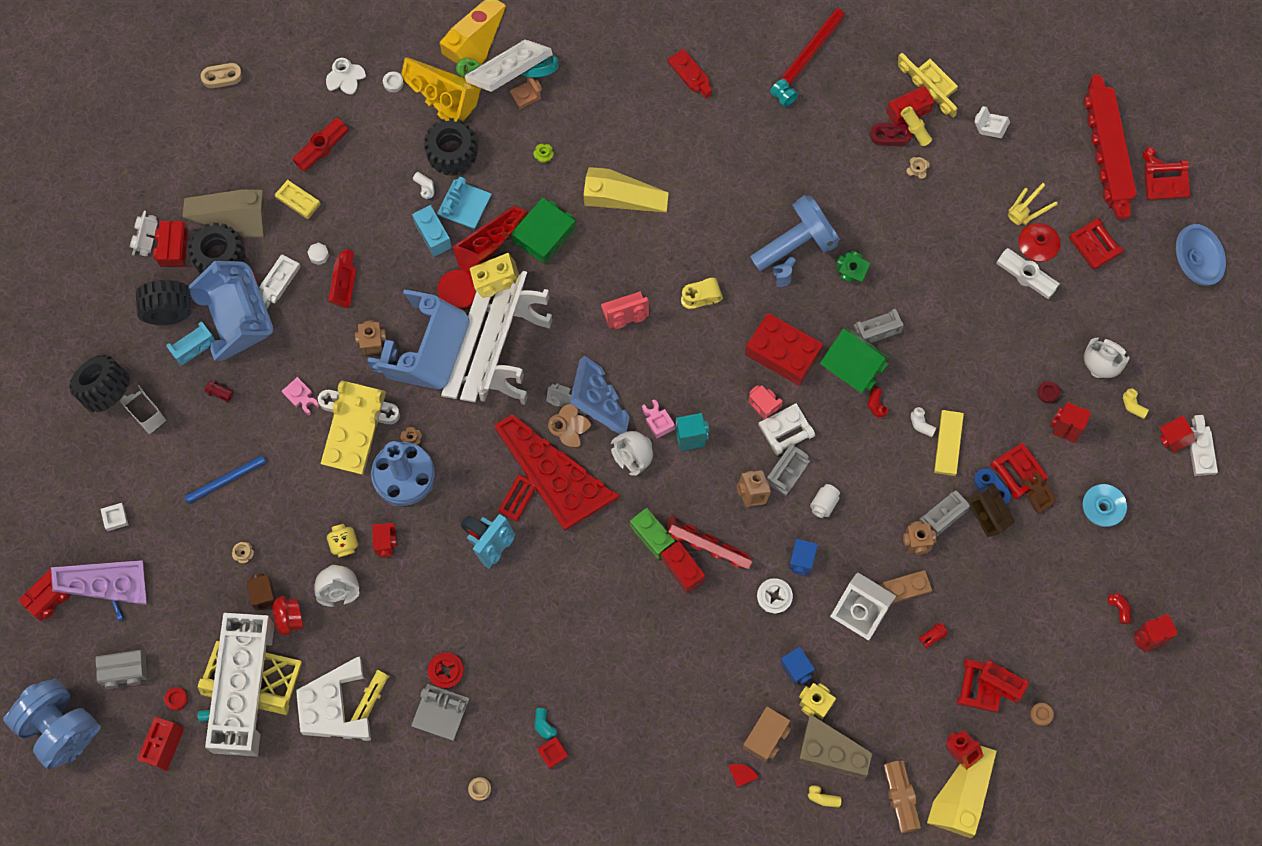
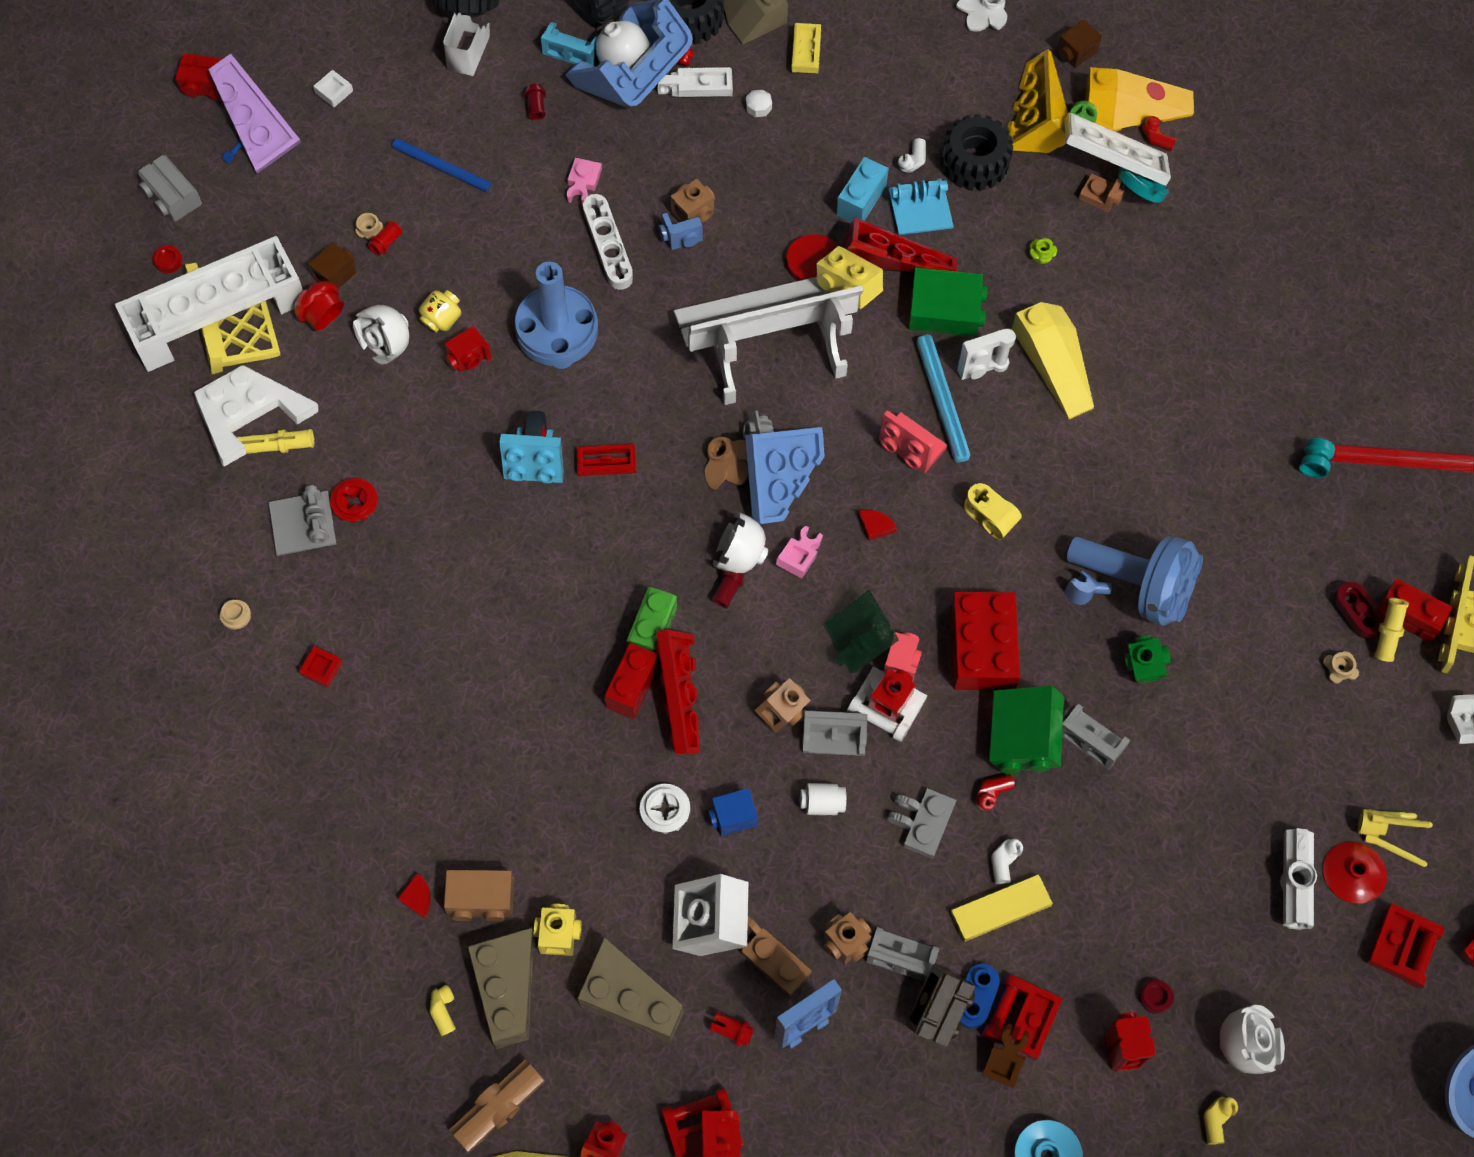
camera: 55 degrees right, 5 degrees down
(41, 711) = (63, 158): medium blue piece -> none
(160, 743) = (106, 271): red hinge -> none
(220, 312) = (621, 43): none -> white cylinder
(261, 551) = (380, 243): none -> red pin
(312, 153) = (885, 31): red piece -> none
(343, 280) = (743, 141): red hinge -> none
(353, 427) = (581, 244): light yellow hinge -> none
(393, 81) = (1013, 58): white tile -> none
(411, 431) = (610, 317): medium nougat plate -> none
(412, 37) = (1078, 44): none -> reddish brown brick
(439, 346) = (727, 268): medium blue windscreen -> none
(505, 37) = (1154, 134): none -> red arm
(542, 726) = (348, 637): teal arm -> none
(558, 479) = (653, 492): red wing -> none
(599, 230) = (977, 354): none -> white plate
(606, 274) = (943, 398): none -> medium azure axle
(654, 476) = (727, 588): none -> dark red pin
(665, 364) = (876, 524): none -> red tile
(690, 73) = (1262, 345): red hinge -> none
(691, 431) = (804, 592): teal brick -> none
(734, 416) = (860, 632): none -> clear green hinge
(791, 427) = (892, 703): none -> red brick
(797, 666) = (589, 884): blue brick -> none
(874, 451) = (929, 822): none -> light grey hinge
(880, 681) = (629, 995): none -> dark tan wedge
(961, 585) = (807, 1014): none -> medium blue tile

